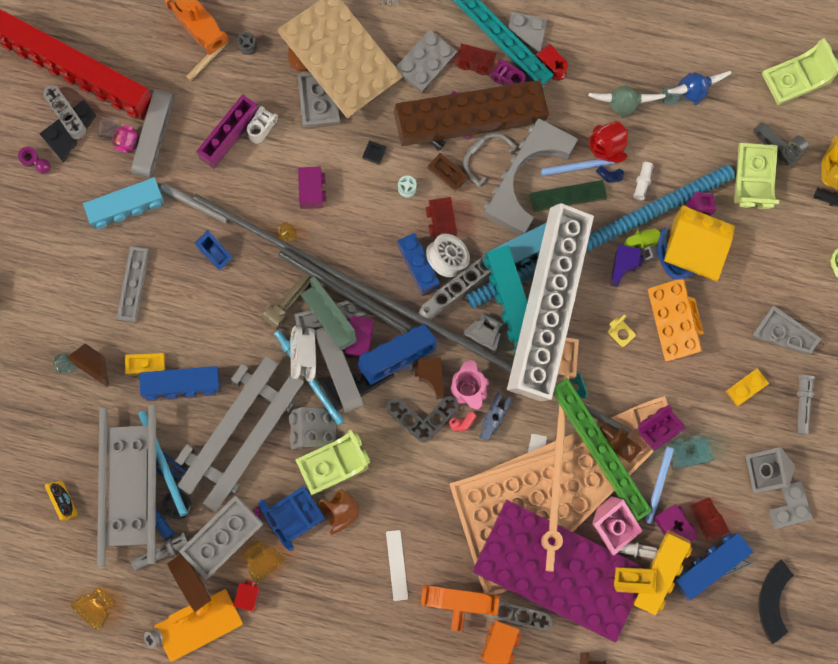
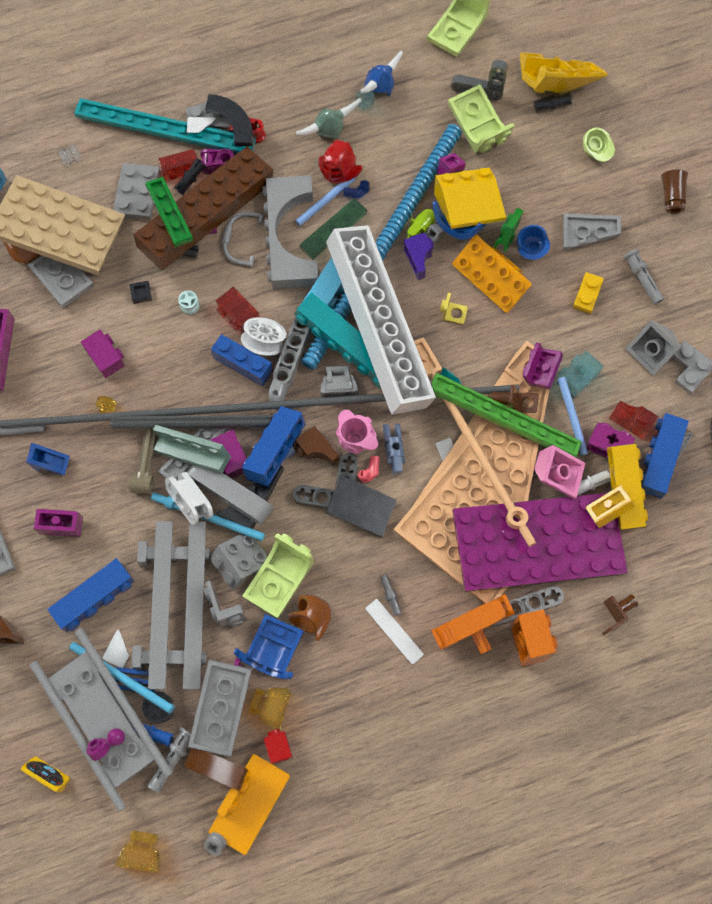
camera: 30 degrees left, 5 degrees down
(112, 508) = (100, 747): none -> magenta plate
(144, 363) = (46, 598): yellow plate -> none
(172, 439) = (116, 651): none -> white sticker
(190, 308) = (58, 522): none -> magenta brick
(262, 121) = (23, 324): white piece -> none
(274, 471) = (231, 616): none -> light grey bracket
(412, 535) = (391, 595): none -> flat silver bar
(435, 447) = (360, 506): none -> black tile
(436, 102) = (169, 212): none -> green tile
(447, 172) = (216, 269): reddish brown plate -> none
(476, 77) = (190, 176): none -> black pin
(513, 33) = (197, 124): none -> white sticker
(548, 47) = (235, 115): none -> black tile
(643, 181) = (388, 179): white pin -> none
(713, 292) = (508, 229): none -> green plate
(727, 315) = (533, 242): none -> blue helmet

